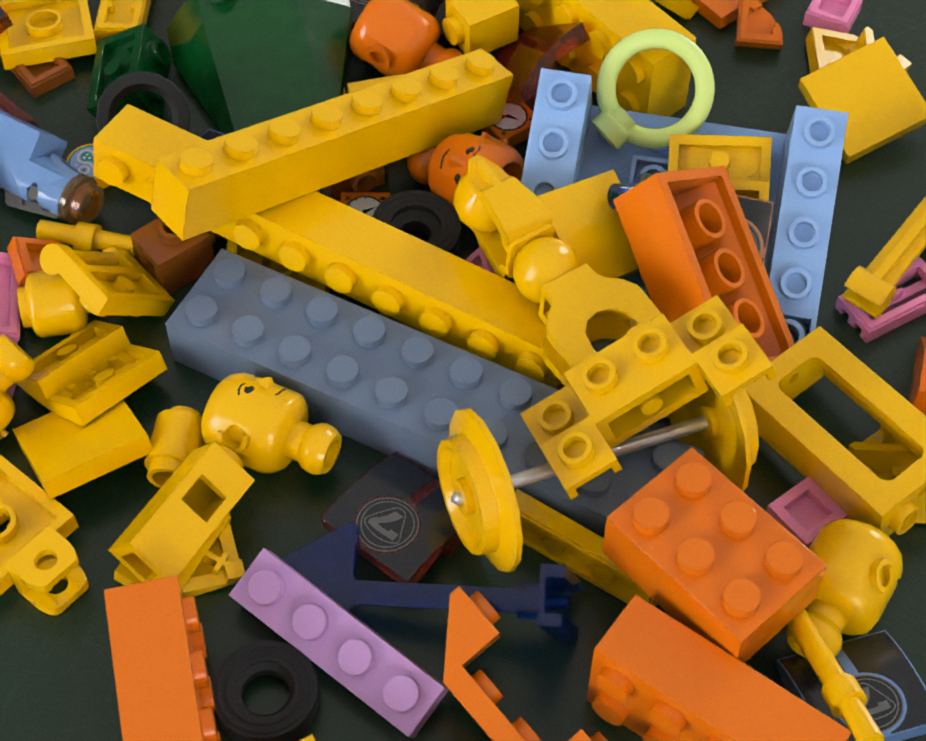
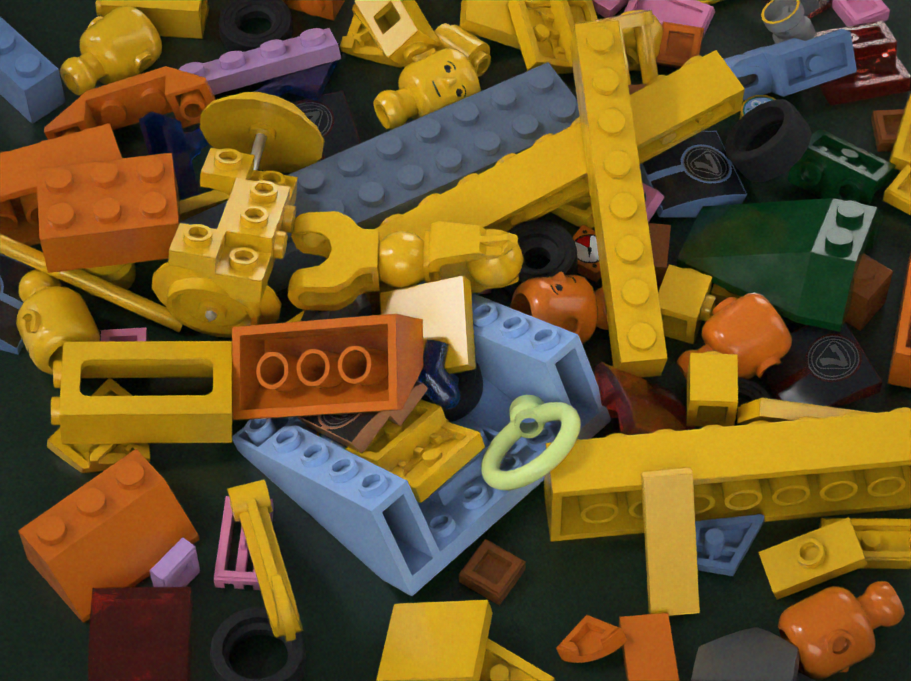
camera: 125 degrees right, 0 degrees up
(753, 113) = (492, 572): none -> dark orange tile

